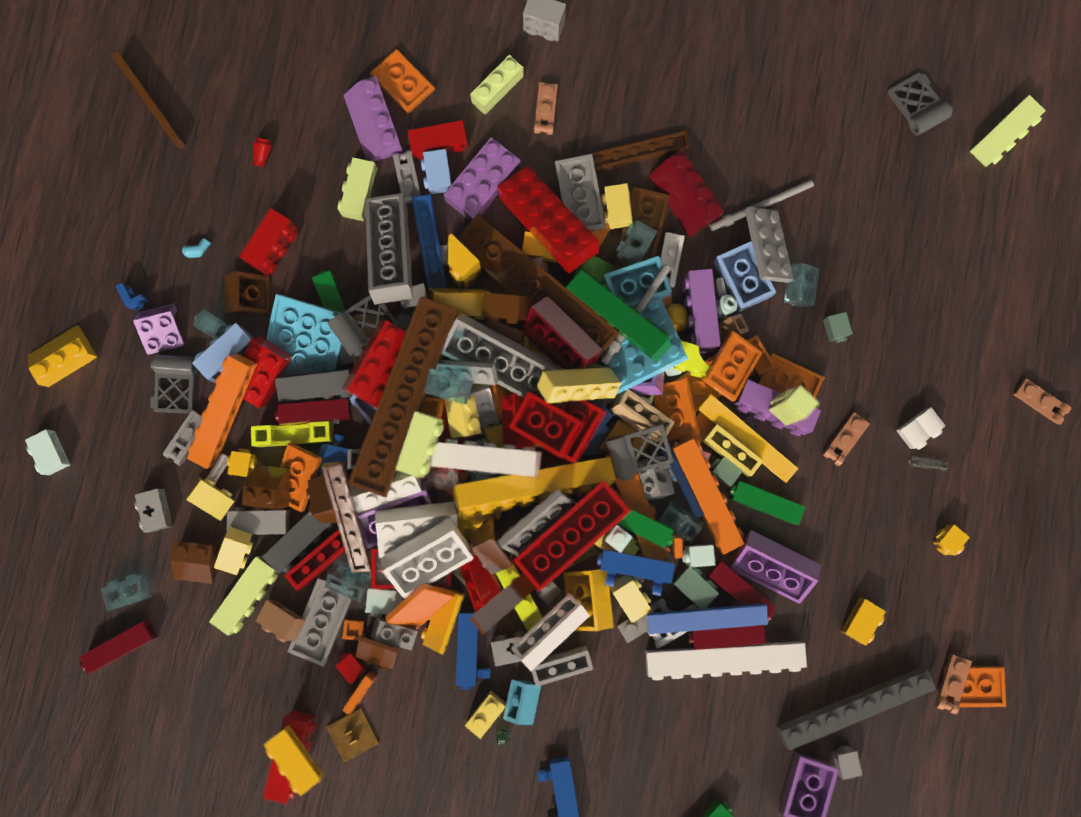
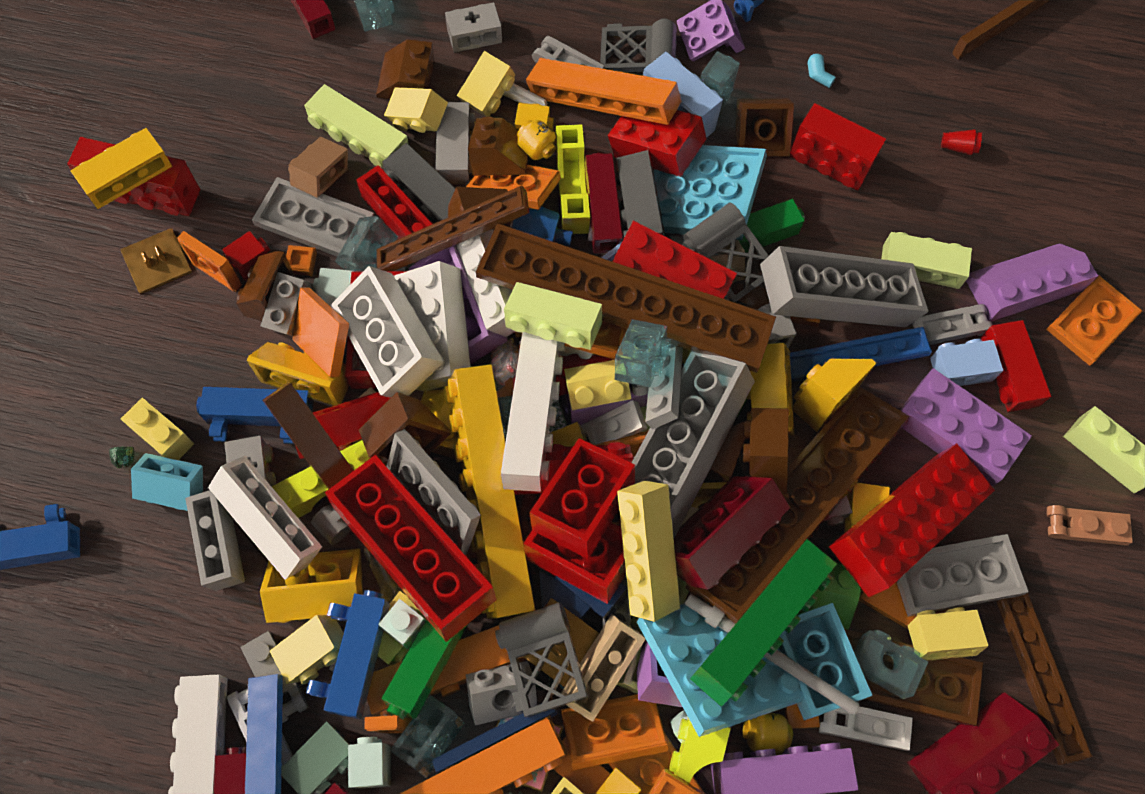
camera: 85 degrees right, 15 degrees down
(262, 459) = (536, 139): none -> yellow head

